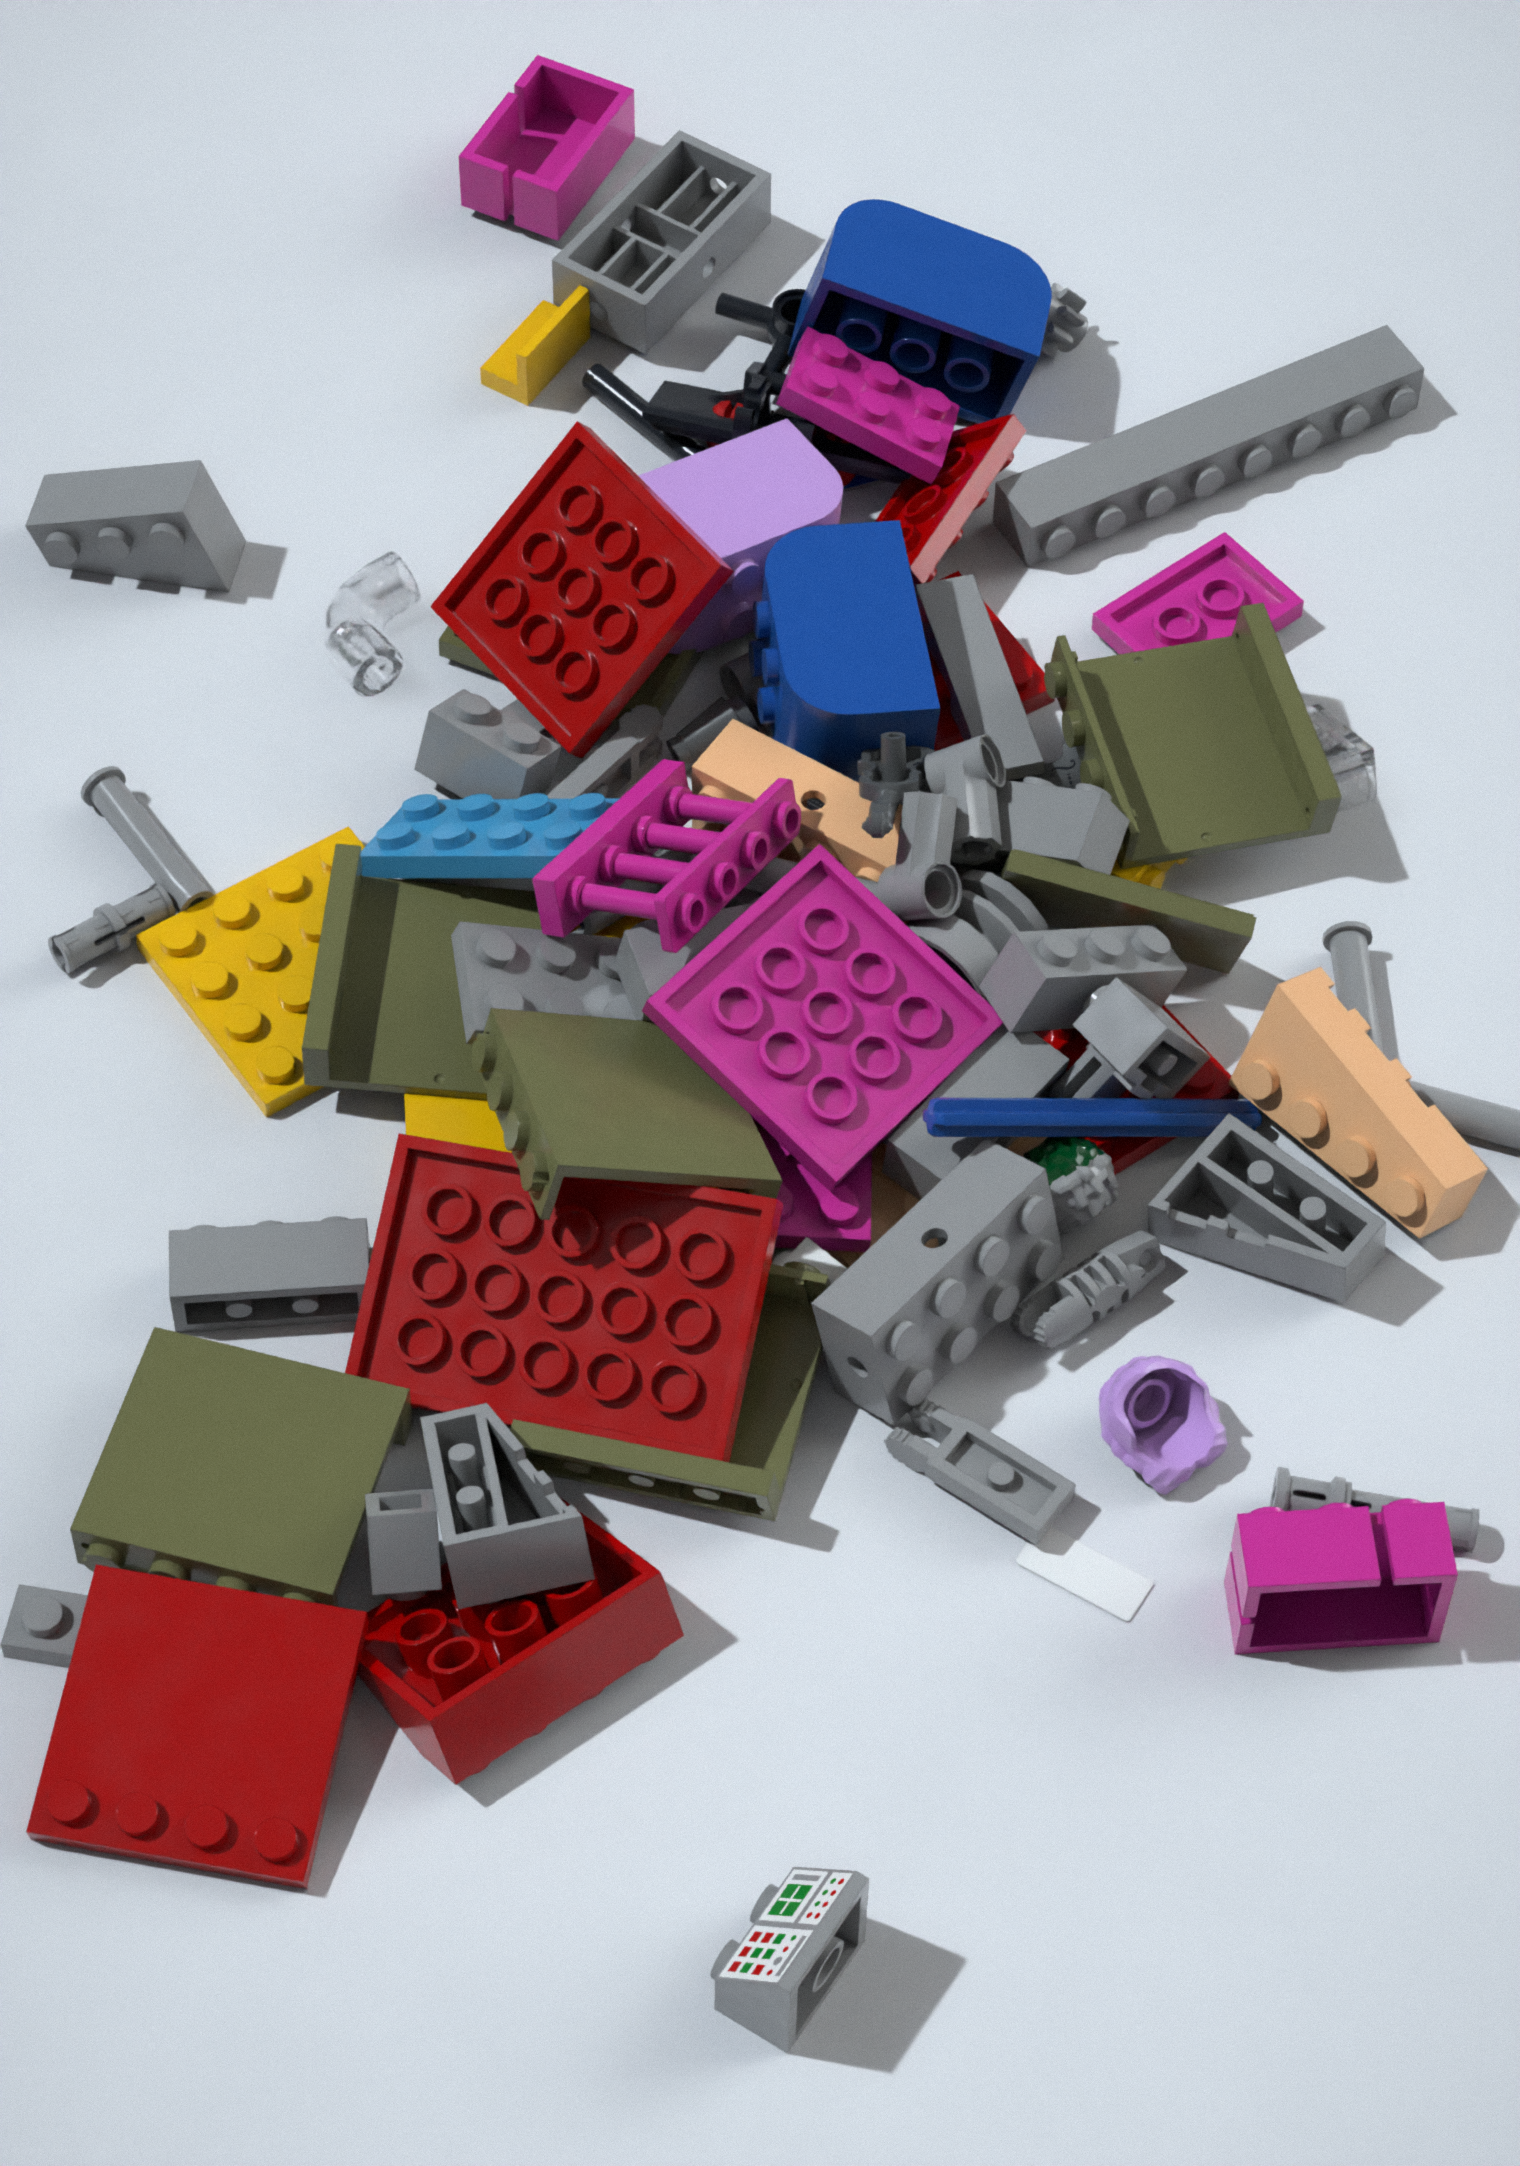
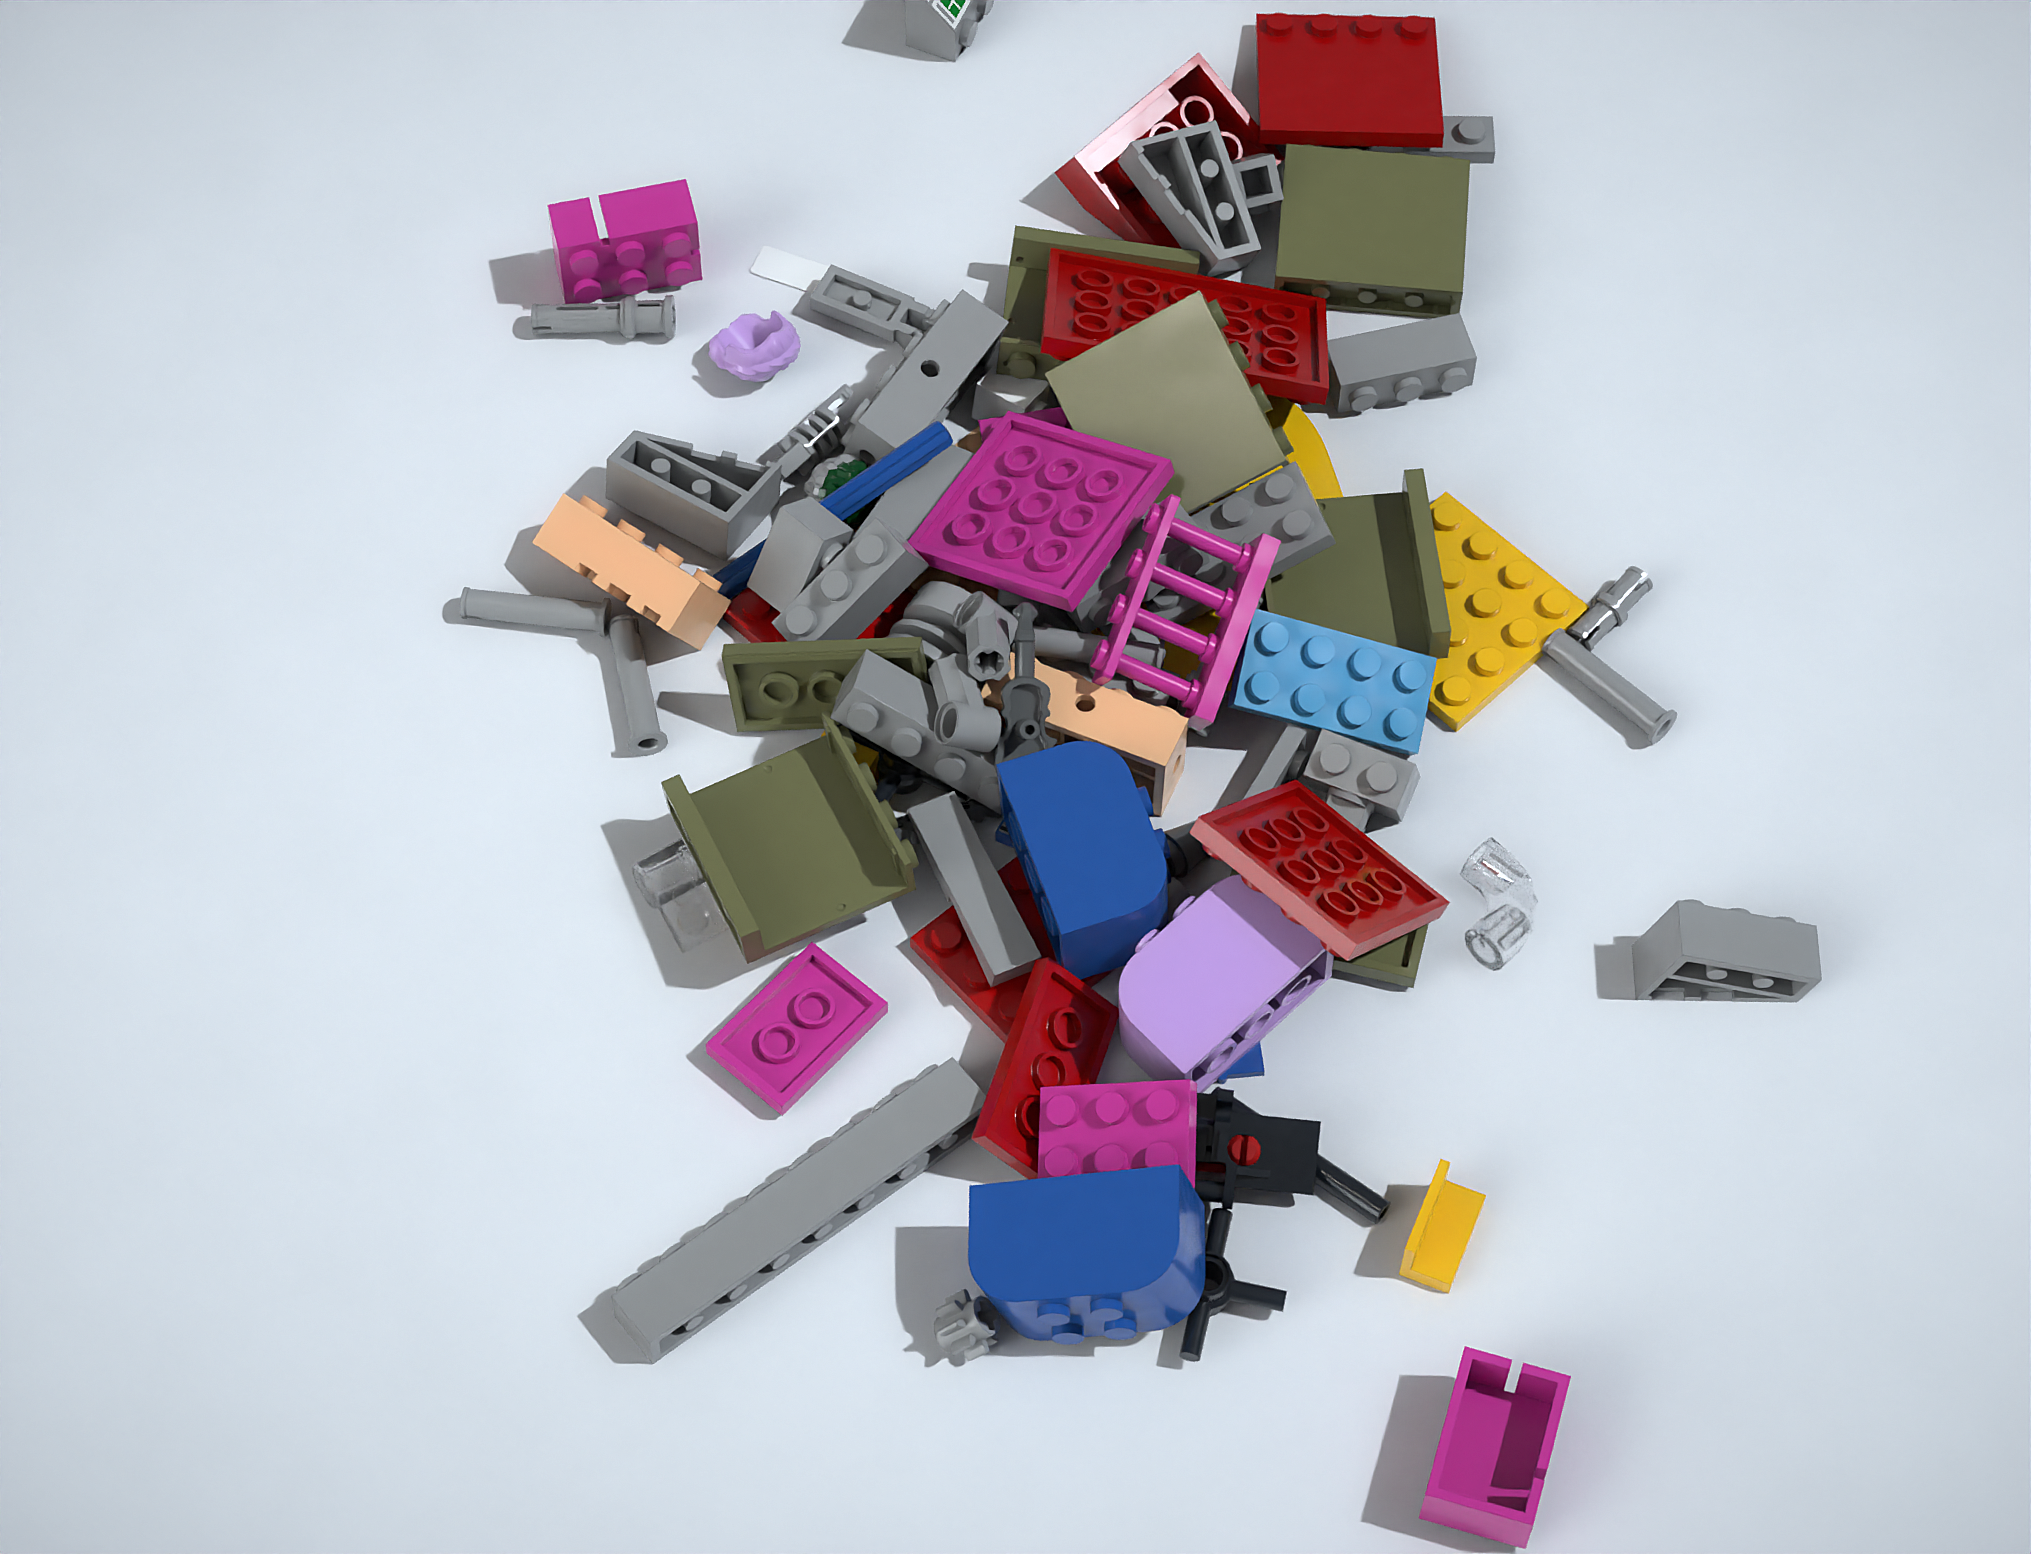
camera: 170 degrees right, 5 degrees up
(664, 239) = (1353, 1345): light grey brick -> none

